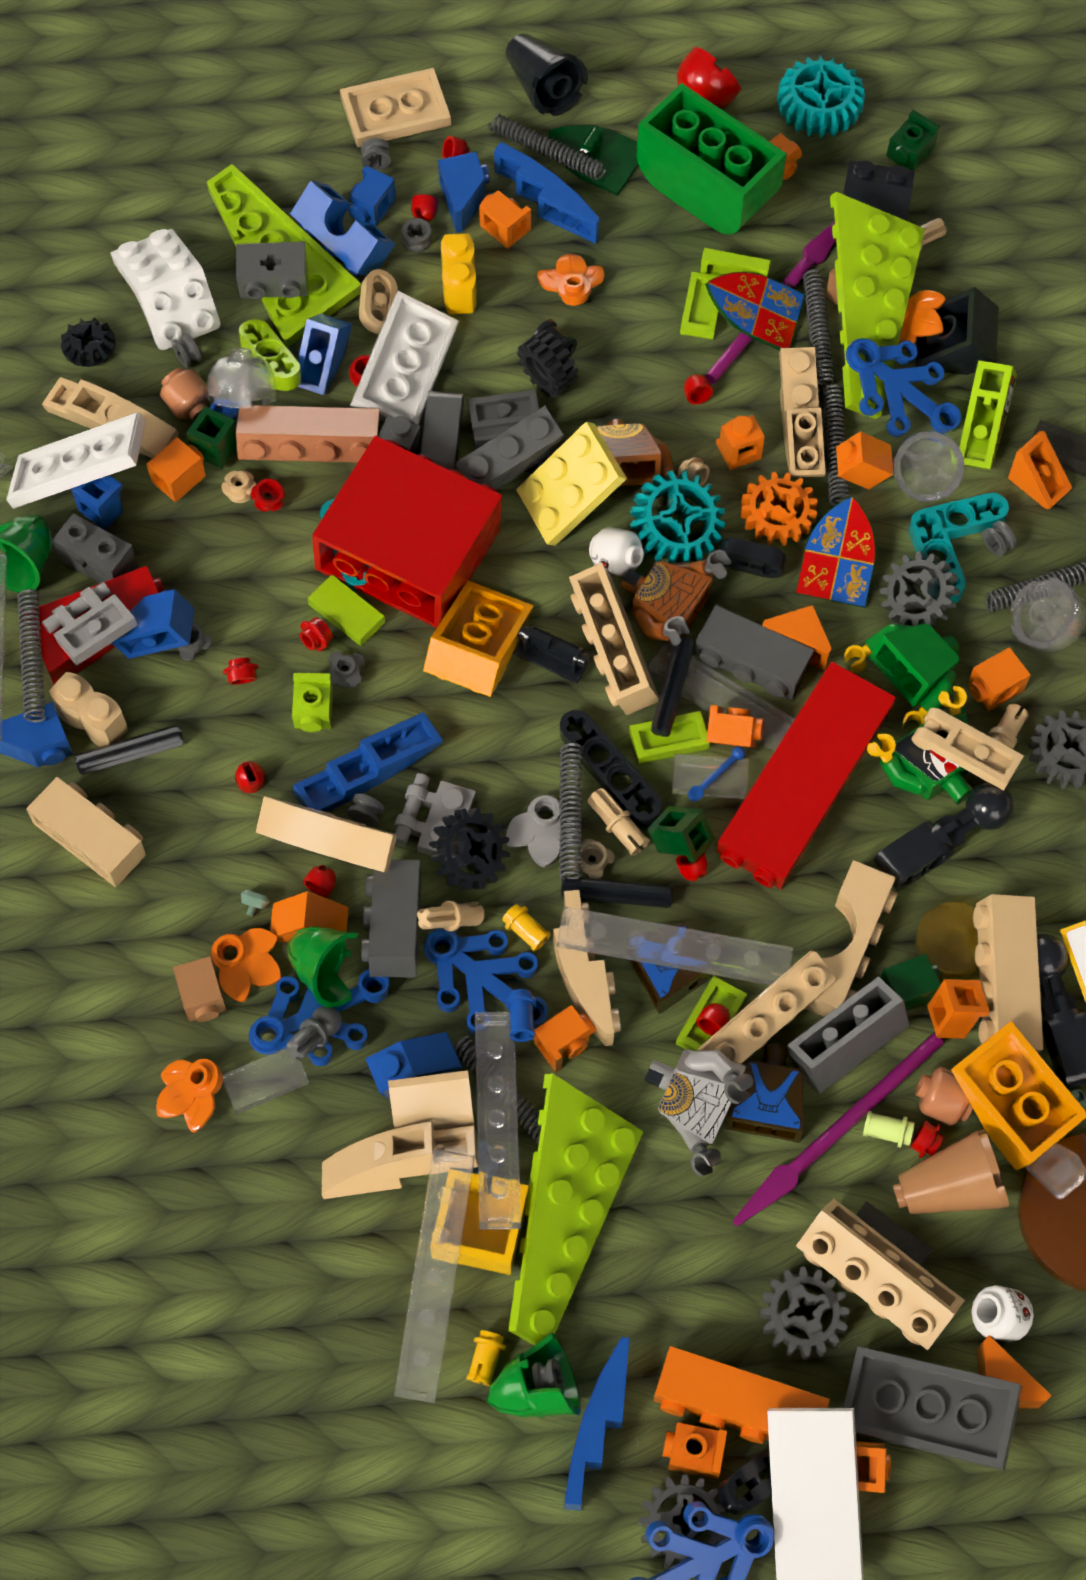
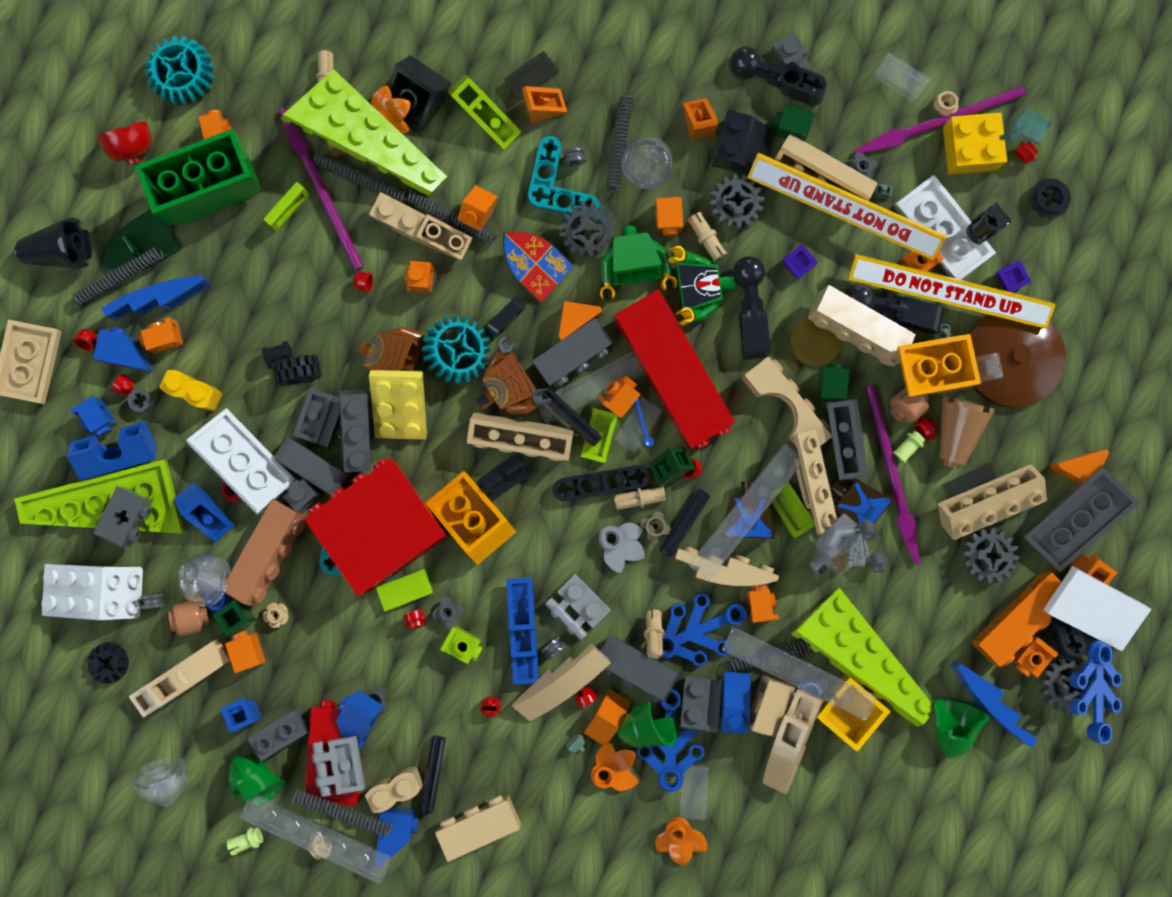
camera: 65 degrees left, 20 degrees up
(76, 460) = (208, 718): white tile -> none
(200, 990) = (620, 806): medium nougat brick -> none
(240, 671) = (416, 679): red plate -> none
(255, 329) = (178, 542): lime beam -> none
(270, 487) = (301, 600): red plate -> none
(314, 1032) = (688, 753): dark grey axle -> none
(373, 304) = (183, 455): tan plate -> none
(376, 153) = (59, 395): dark grey bush -> none
(383, 1022) = (700, 704): none -> dark grey plate
(434, 1276) = (872, 756): clear tile -> none
(463, 847) = (615, 611): black gear -> none
(485, 1357) = (918, 741): yellow pin -> none
(521, 1007) = (740, 624): blue pin -> none
(525, 927) = (679, 589): yellow pin -> none
(548, 1375) = (958, 720): dark grey bush -> none
(563, 834) = (642, 536): dark grey piece -> none
(571, 279) = (230, 314): orange plate -> none
(616, 550) = (458, 400): white head -> none
(694, 467) = (424, 319): tan plate -> none
(699, 311) = (300, 242): lime tile -> none
(713, 1018) = (797, 511): red hinge -> none
(757, 306) = (325, 208): shield -> none
(779, 508) = (491, 280): orange gear -> none
(880, 186) = (283, 81): black slope -> none
(898, 385) = (436, 155): blue plant -> none
(913, 141) = (248, 22): dark green brick -> none
(928, 466) = (505, 171): clear cylinder -> none
(957, 1007) = (865, 367): orange brick -> none
(968, 748) = (714, 265): tan plate -> none
(1002, 1313) = (1047, 447): white head -> none
(1044, 865) = (799, 262): none -> dark purple plate

